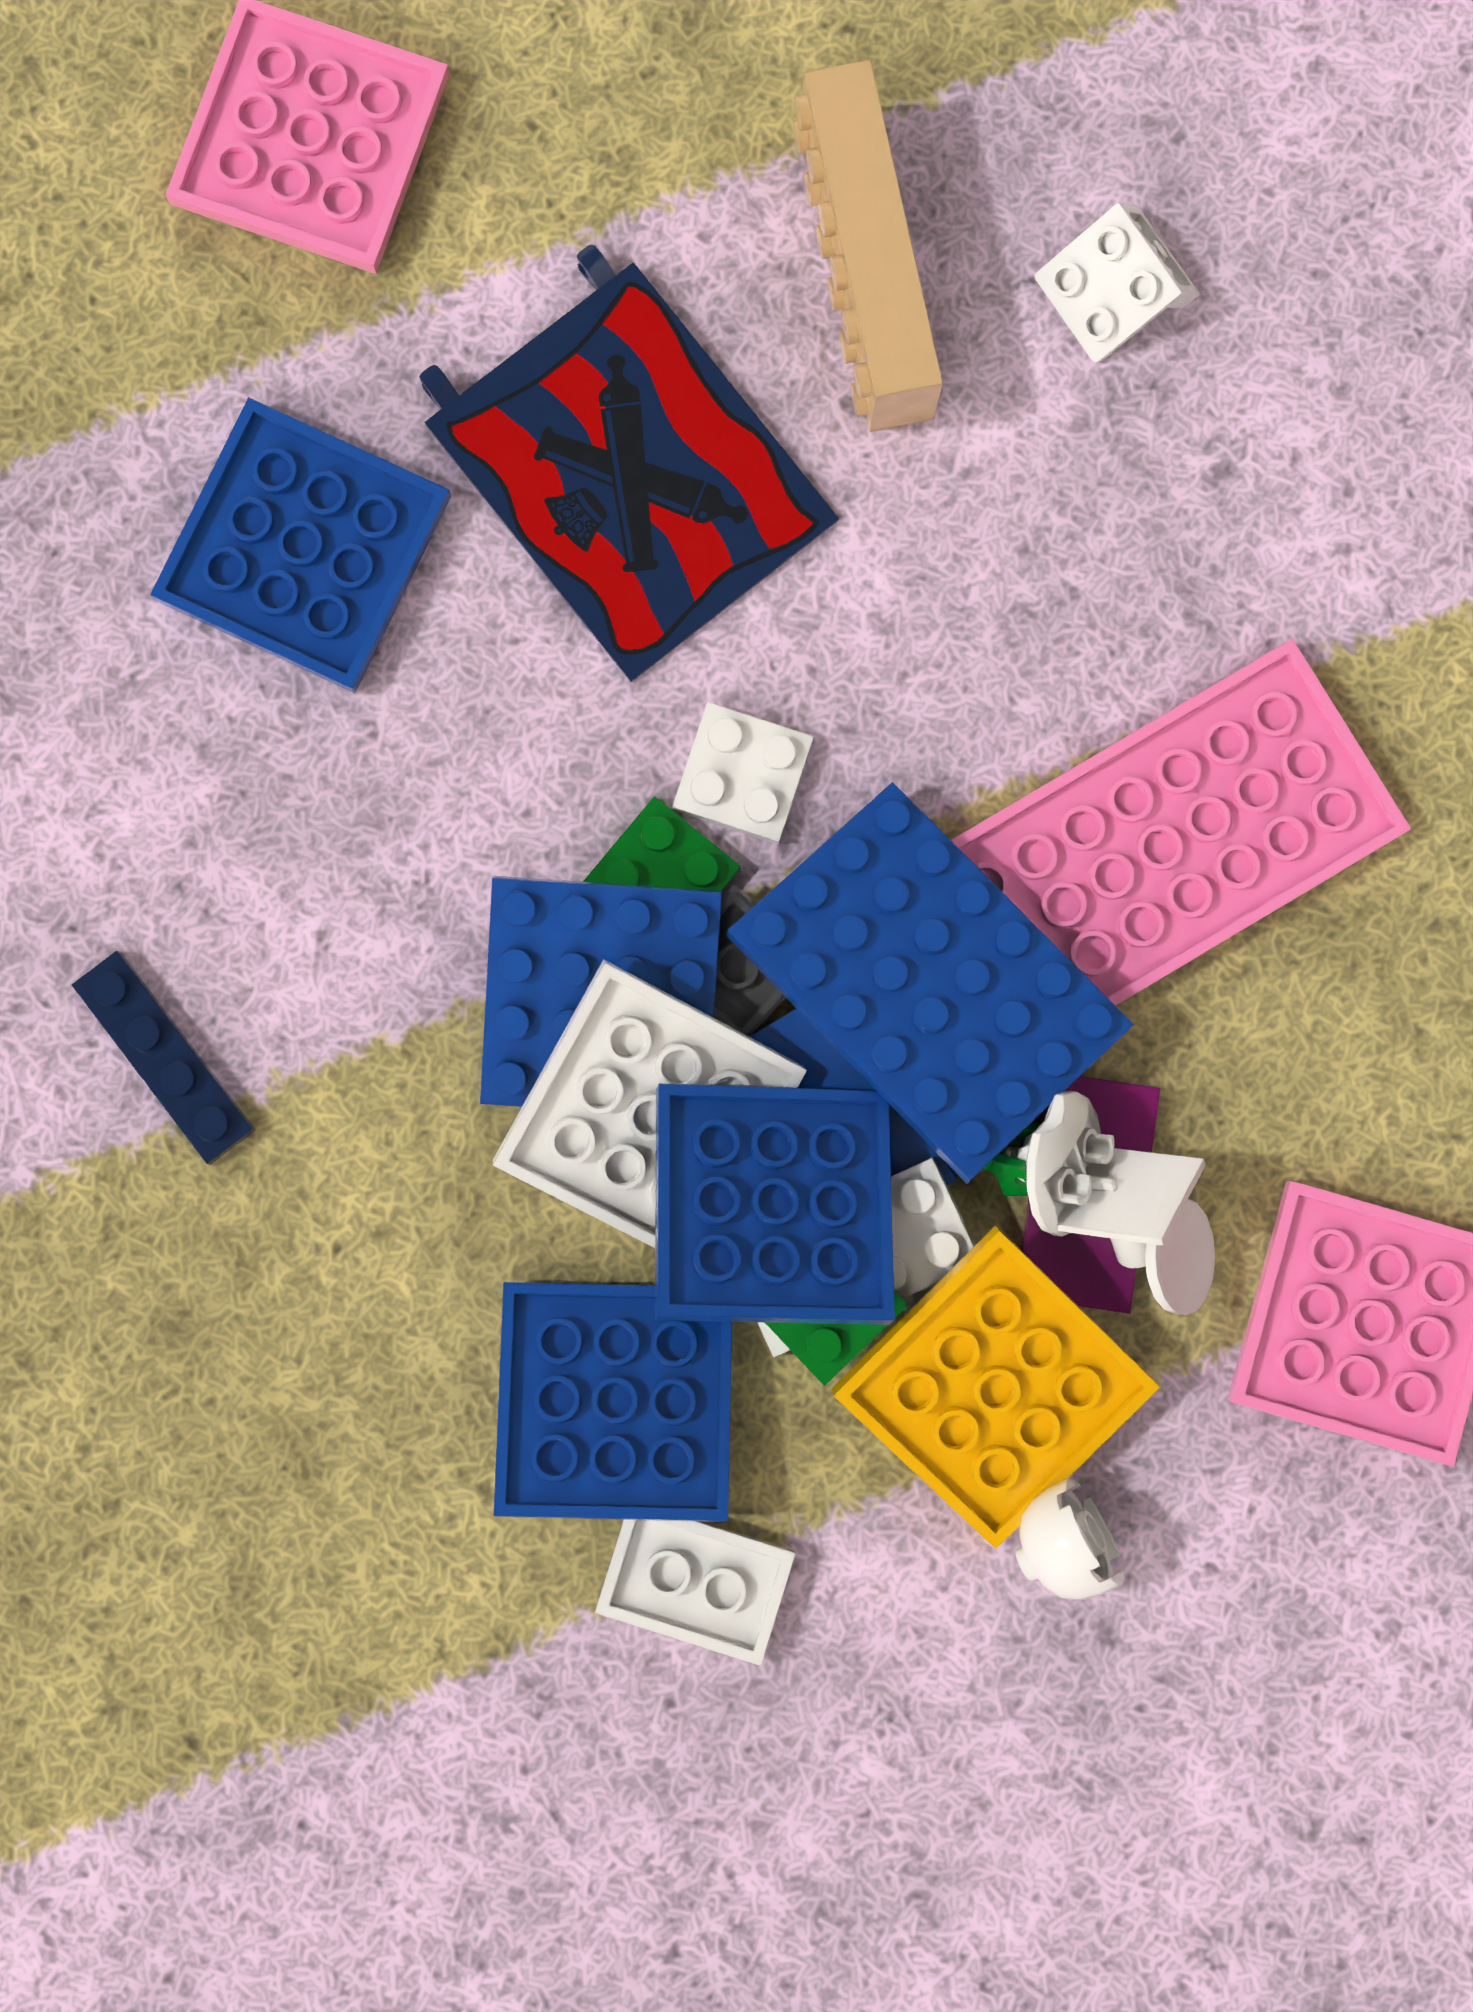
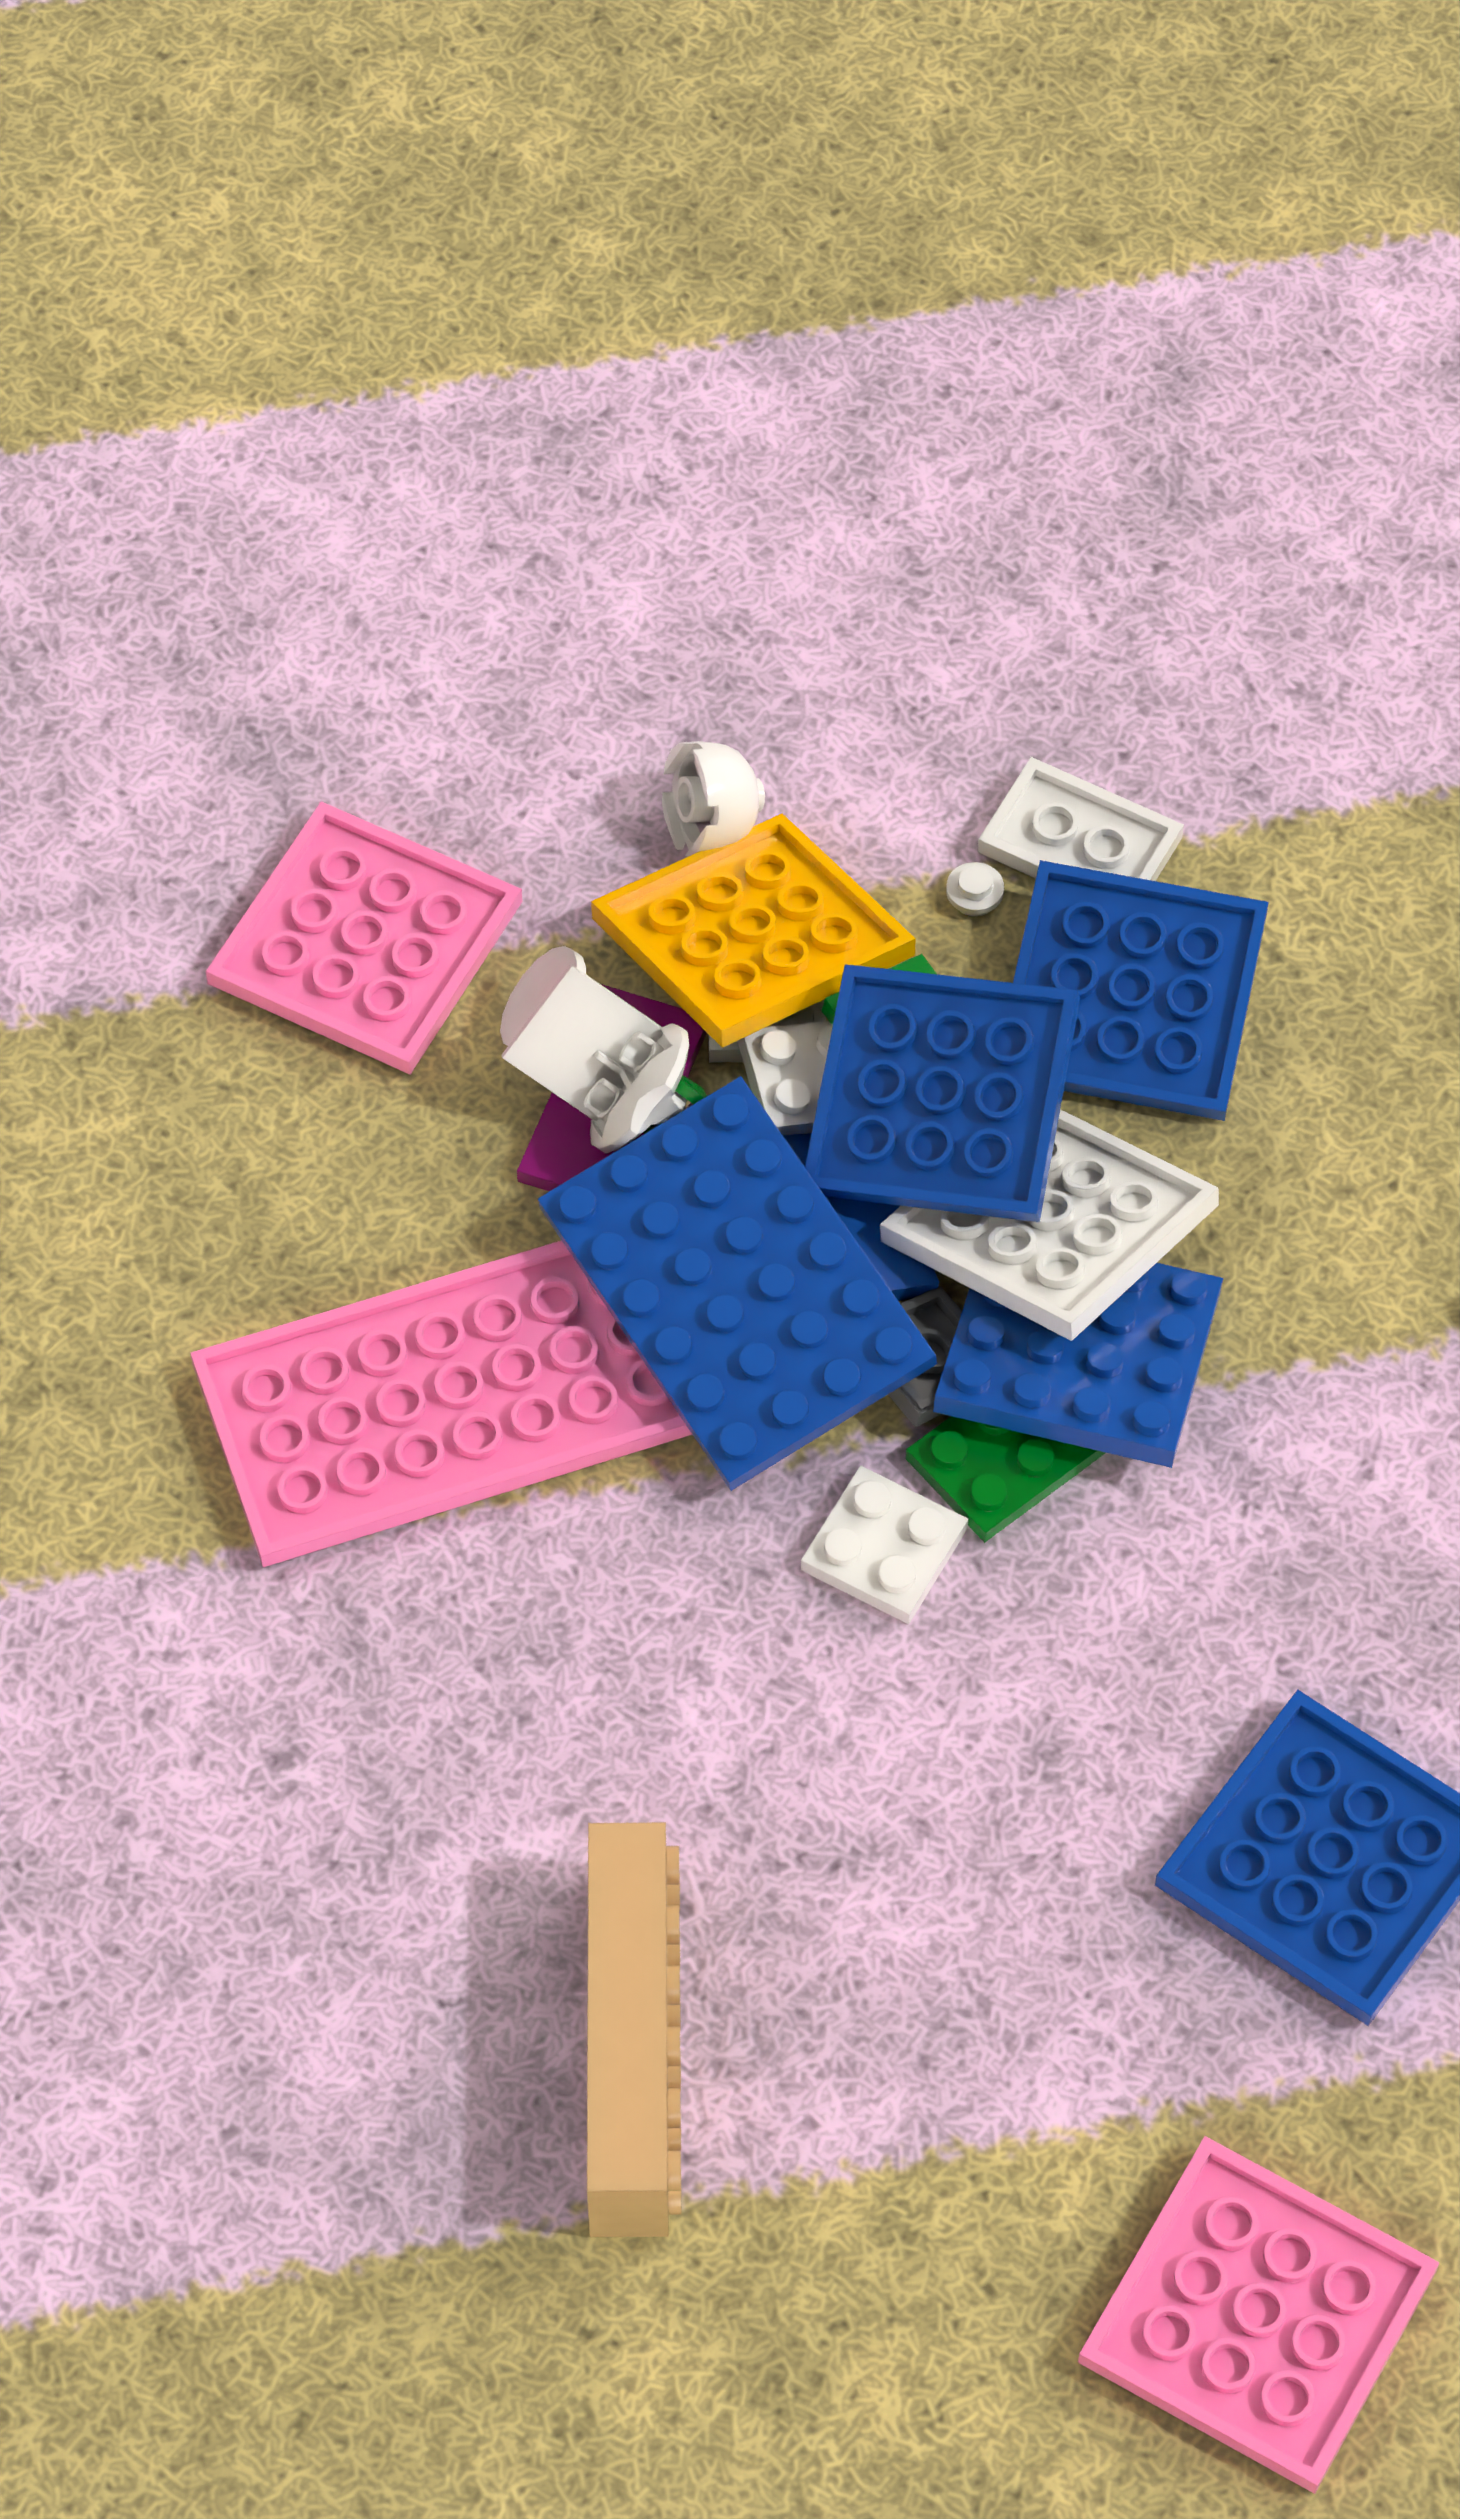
camera: 165 degrees left, 25 degrees down
(629, 468) = (949, 1882): flag -> none
(789, 1502) = (975, 888): none -> white plate
(1114, 280) = (343, 1966): white bracket -> none

